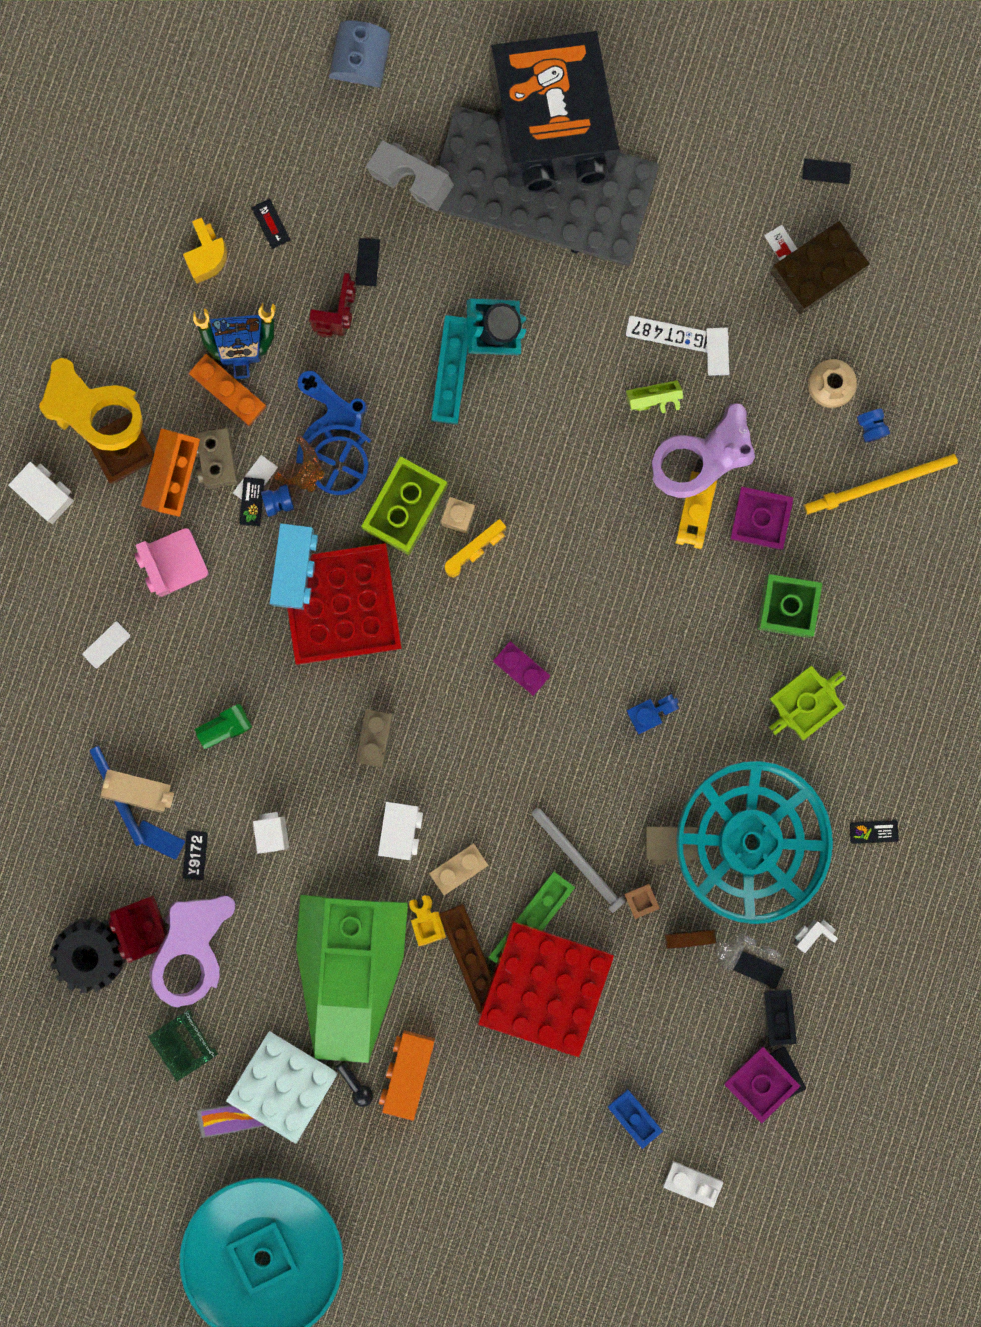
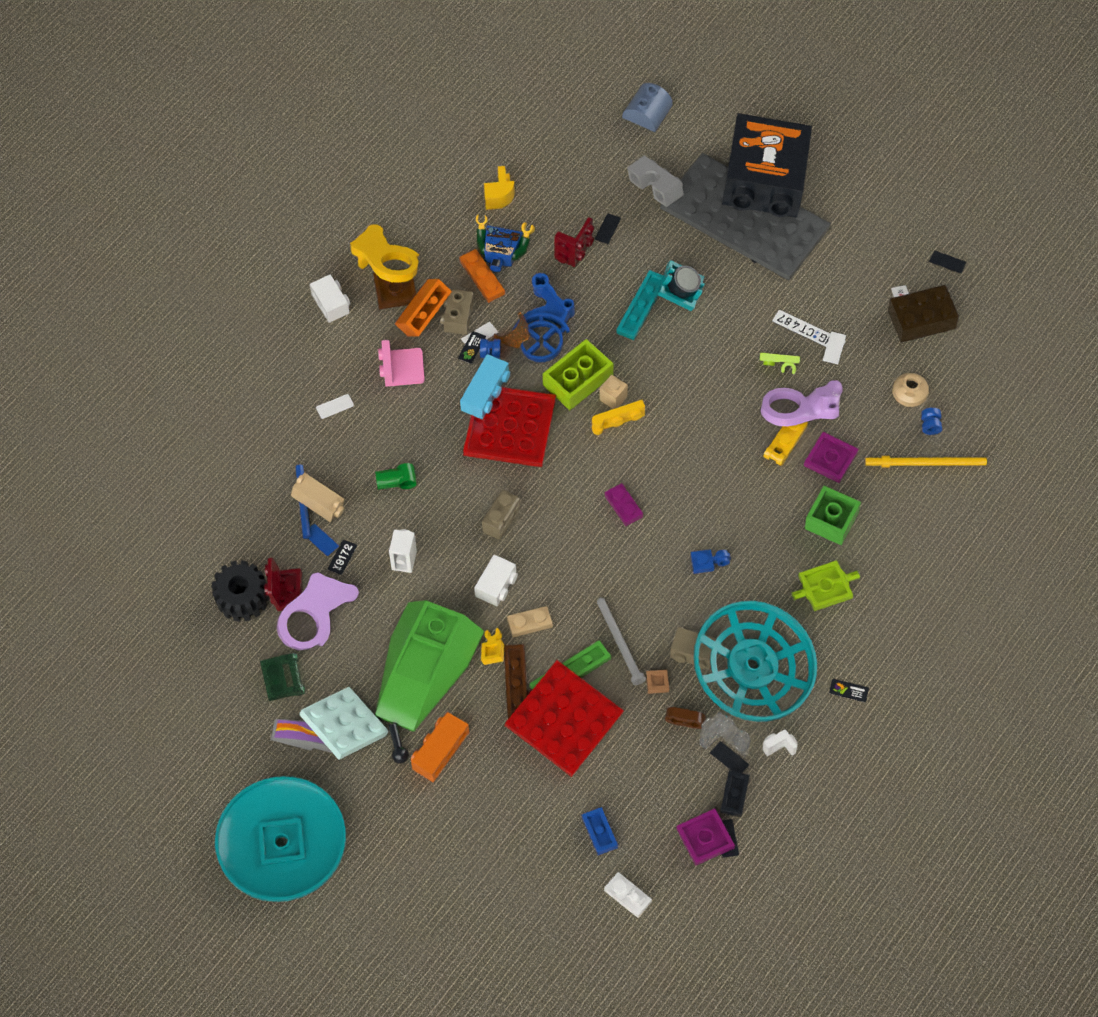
camera: 20 degrees right, 25 degrees down
(270, 223) = (550, 188): black sticker -> none

